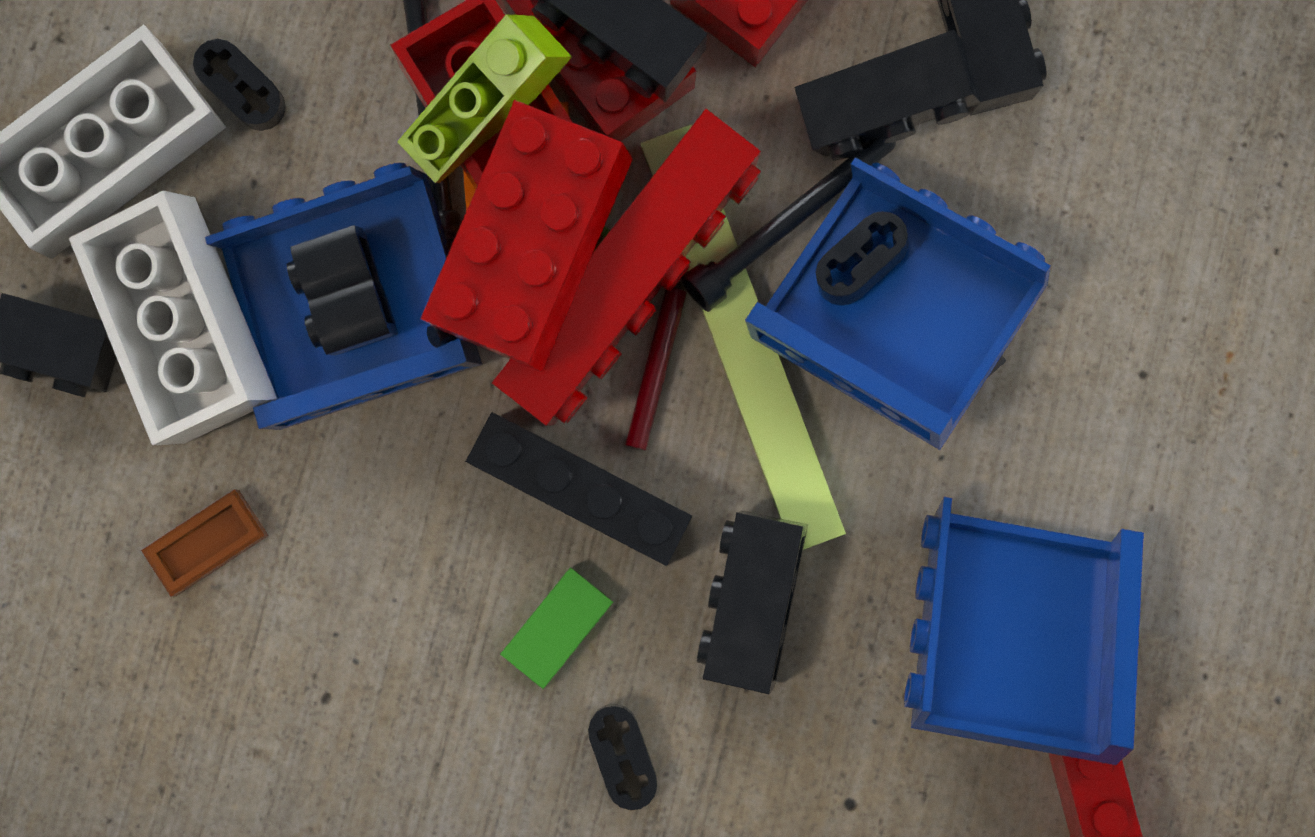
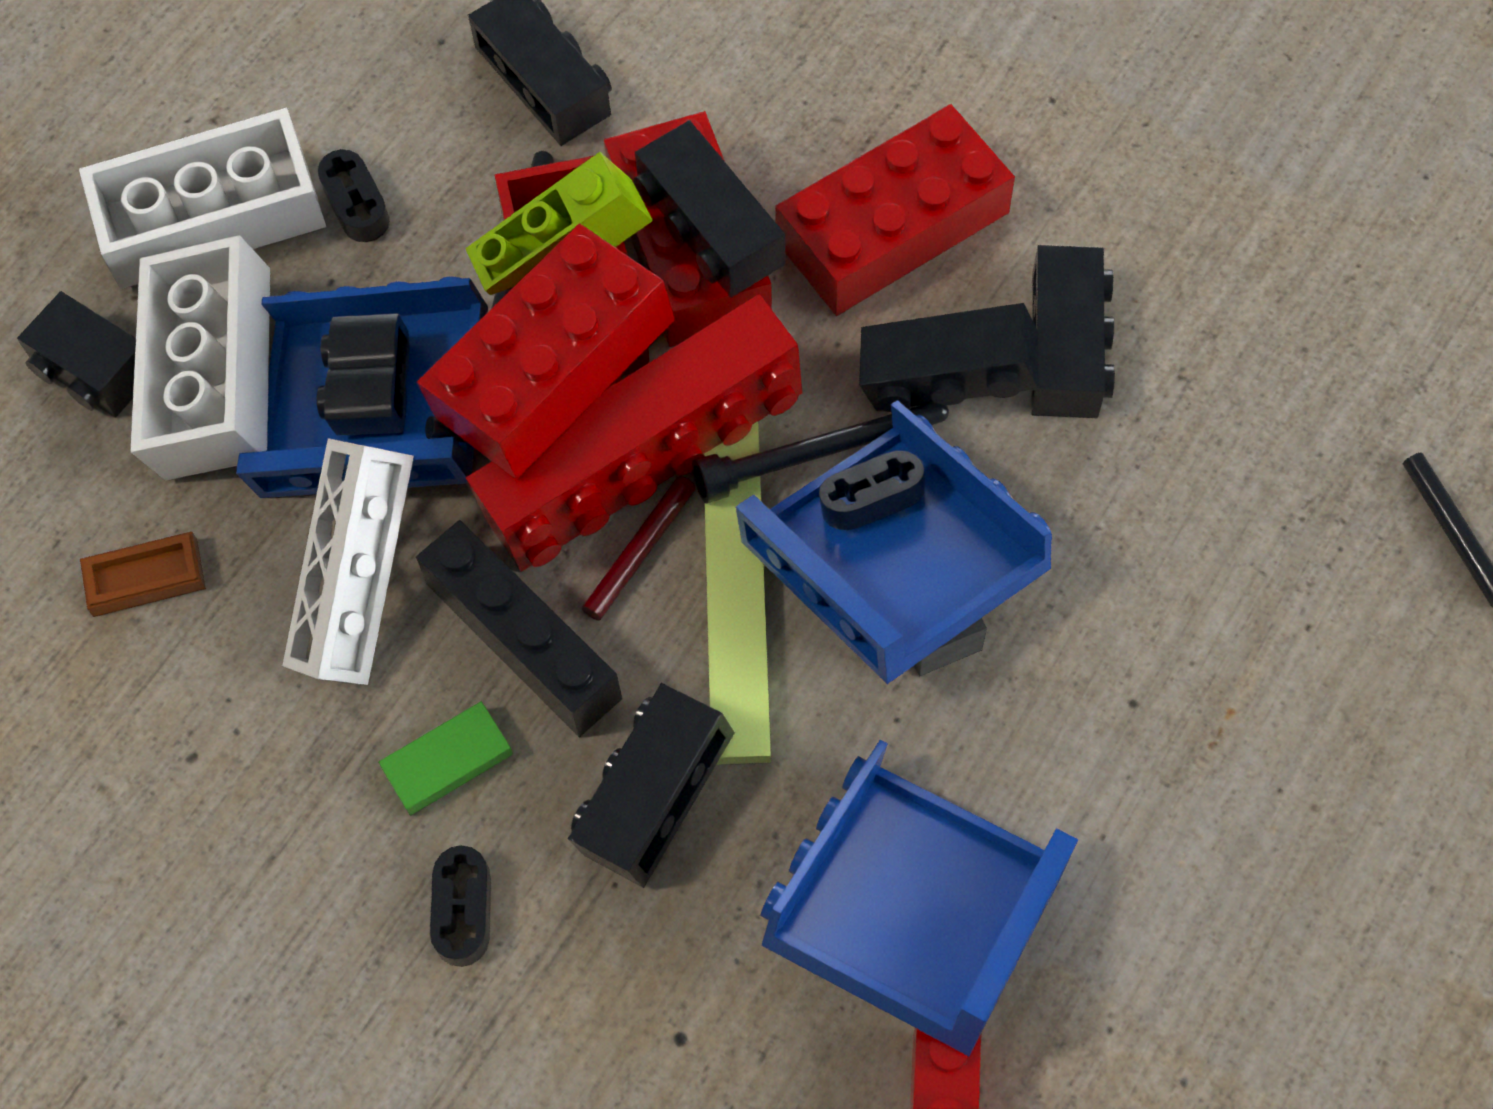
camera: 25 degrees right, 20 degrees down
(411, 491) = (352, 563): none -> white fence

